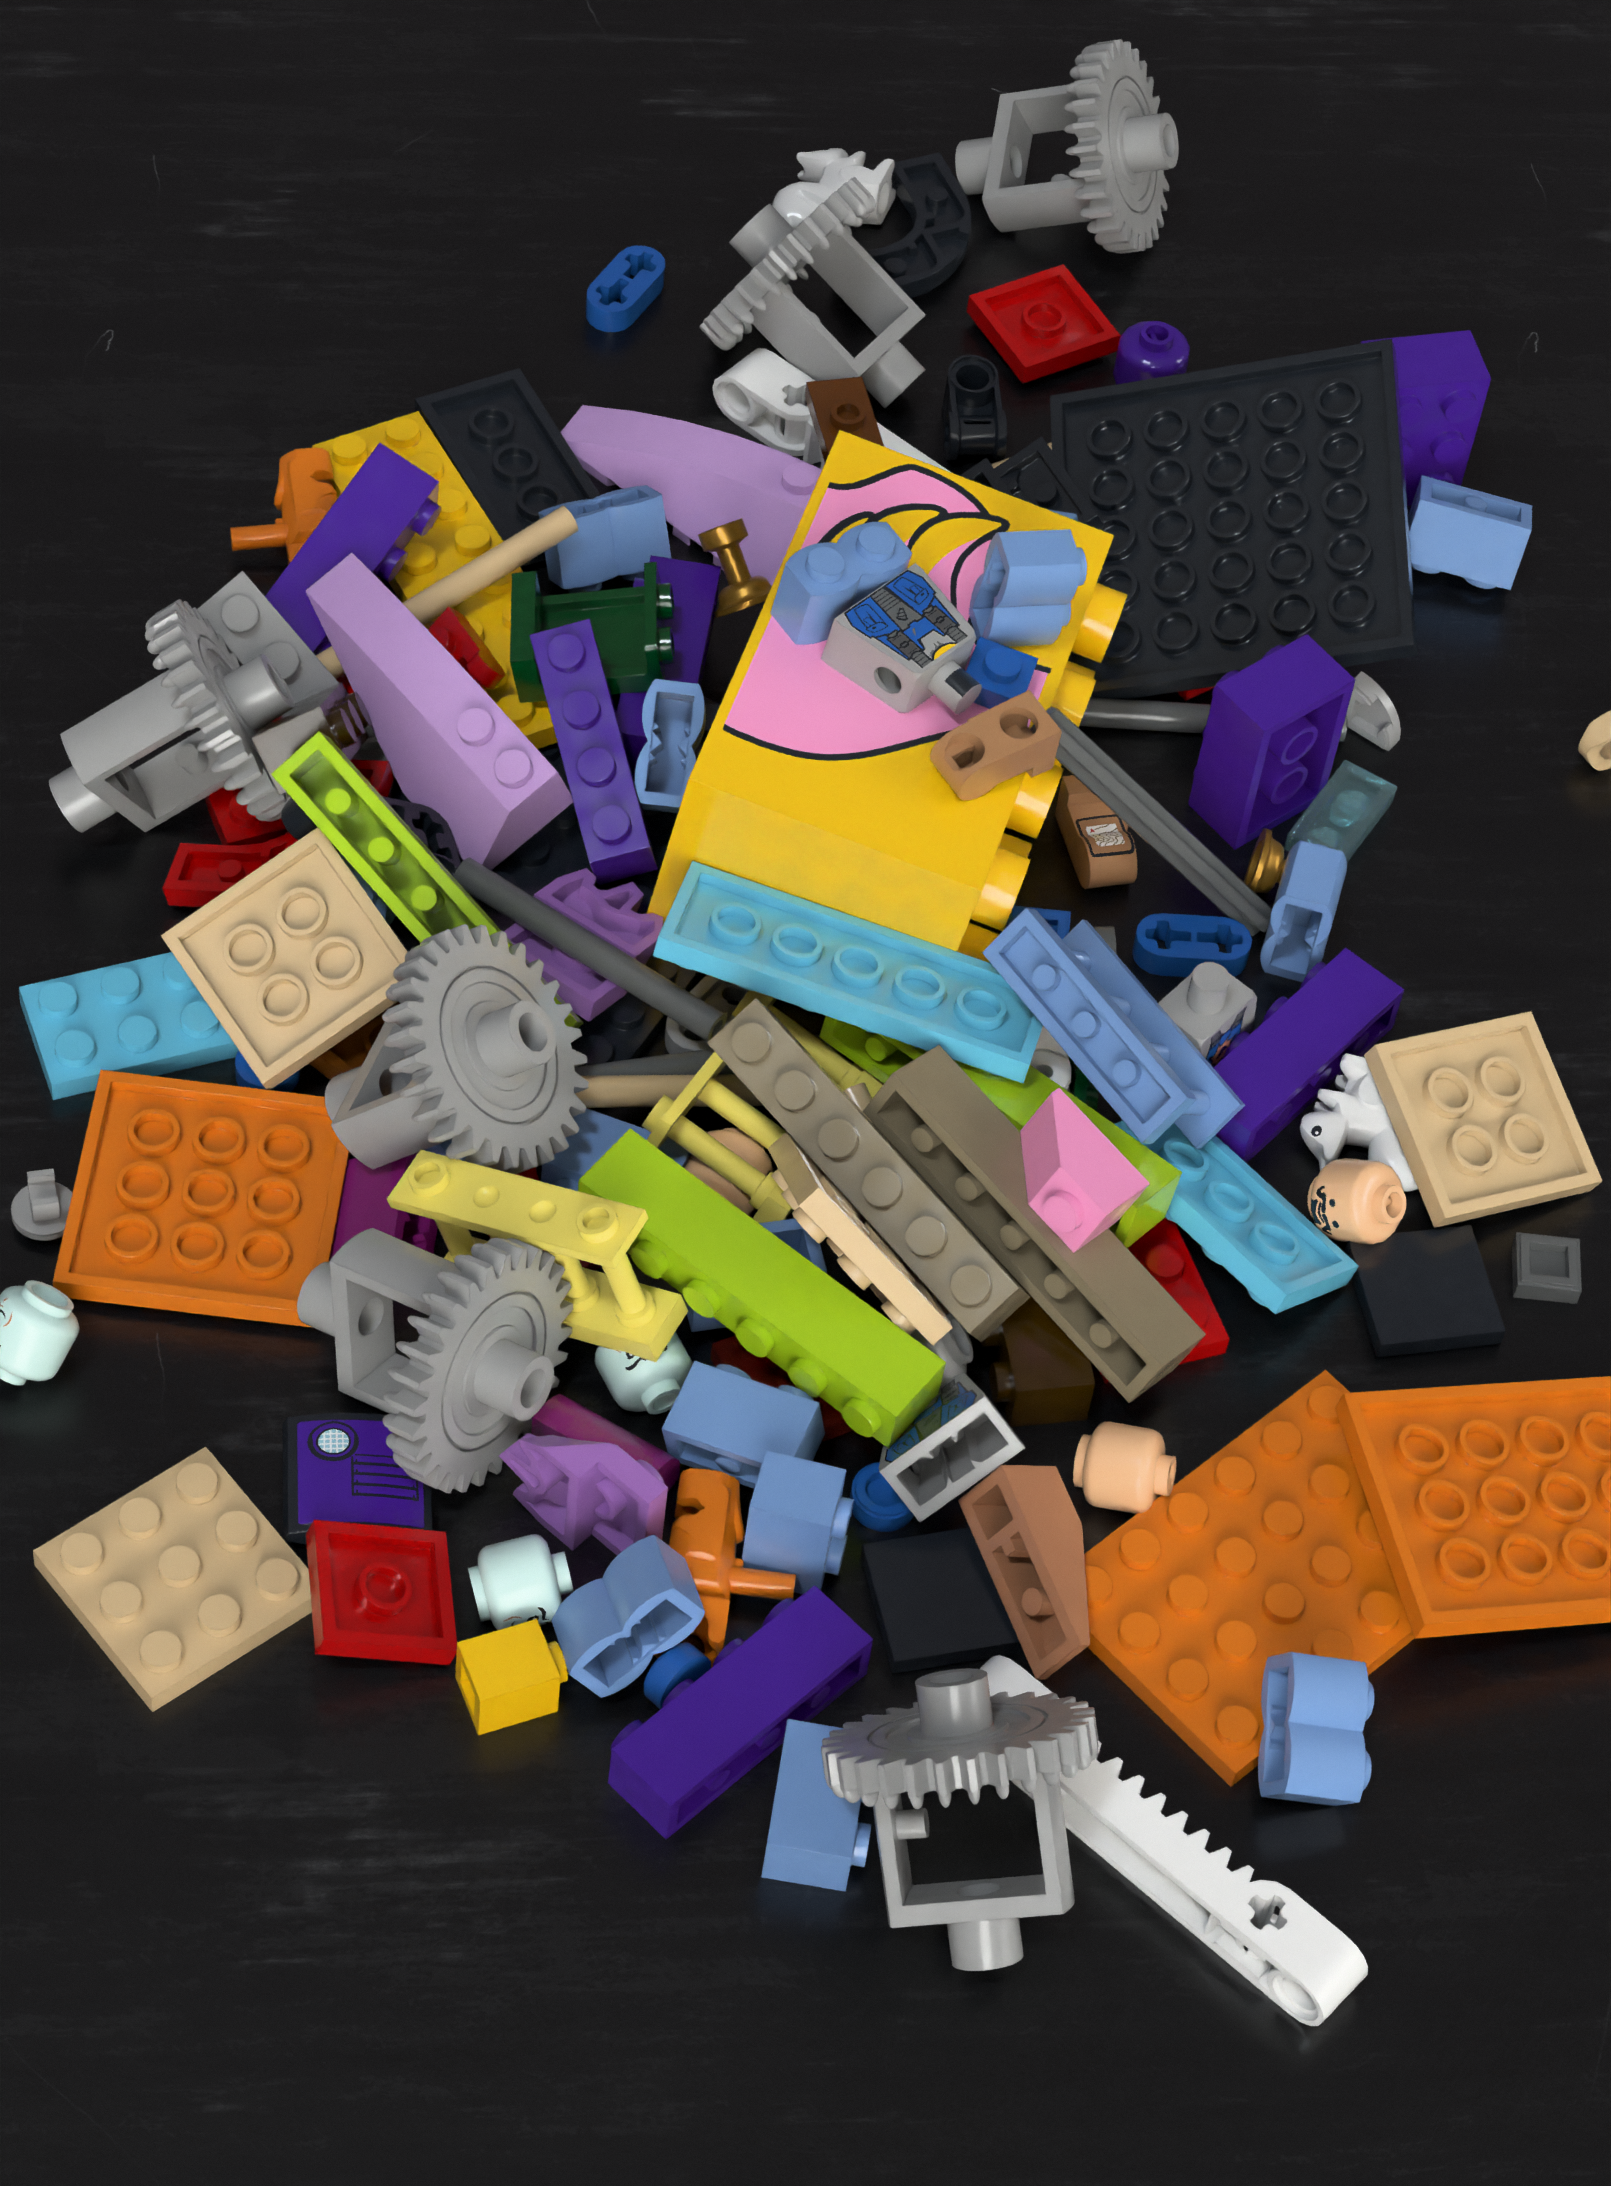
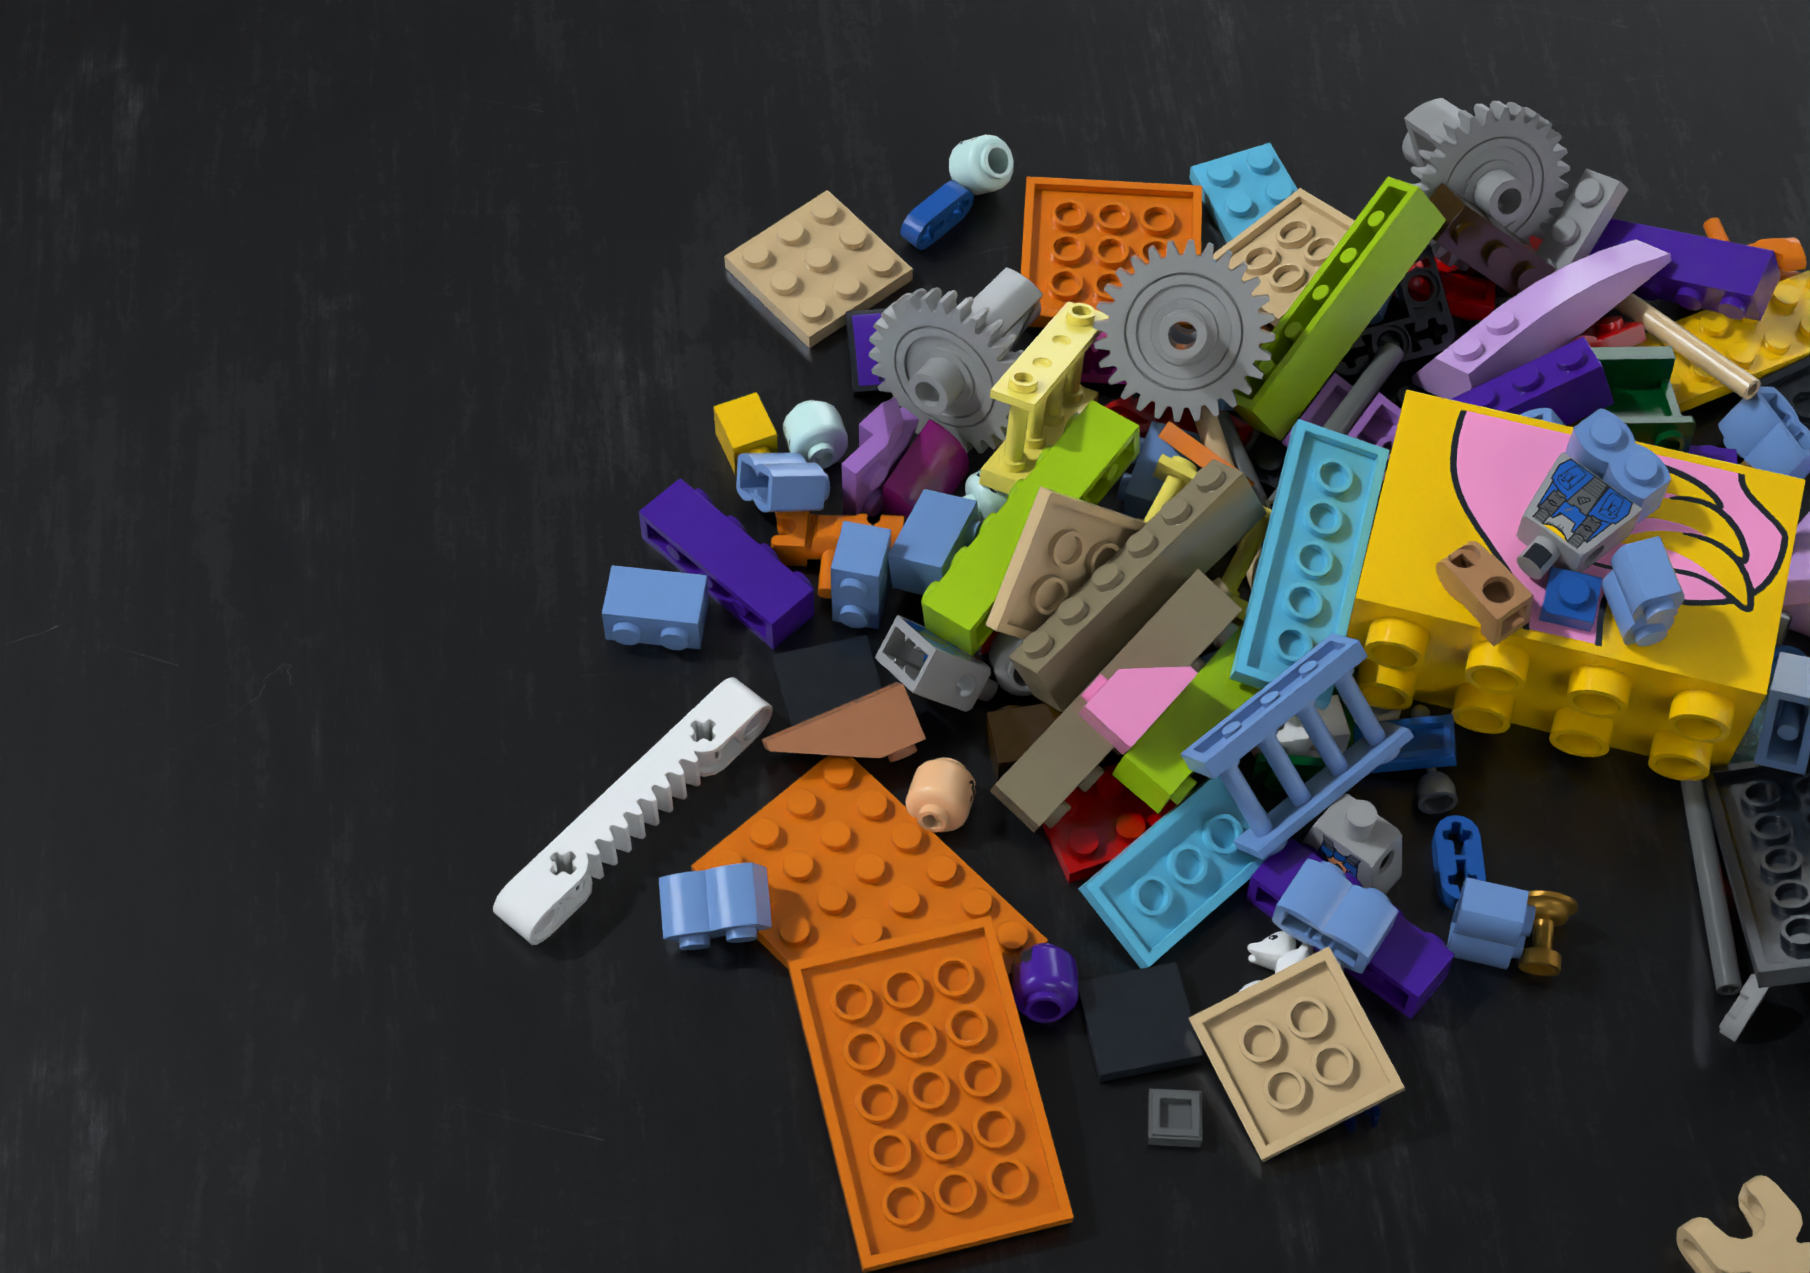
camera: 95 degrees right, 5 degrees up
(41, 1206) = (1091, 167): light grey plate -> none
(106, 1406) = (937, 215): none -> blue beam
(381, 1592) = (803, 360): red plate -> none
(641, 1089) = (1190, 447): none -> orange tile
(672, 1668) = (755, 523): blue tile -> none
(956, 1742) = (650, 646): light grey piece -> none
(1094, 837) = (1557, 790): medium nougat leg -> none
(1158, 826) = (1515, 754): dark grey axle -> none
(1270, 740) = (1652, 887): dark purple brick -> none
(1319, 1040) = (1333, 912): none -> medium blue brick
(1344, 810) = (1619, 977): clear light blue plate -> none
(1357, 1201) = (1203, 960): light nougat head -> none
(1388, 1363) = (1044, 982): none -> dark purple head

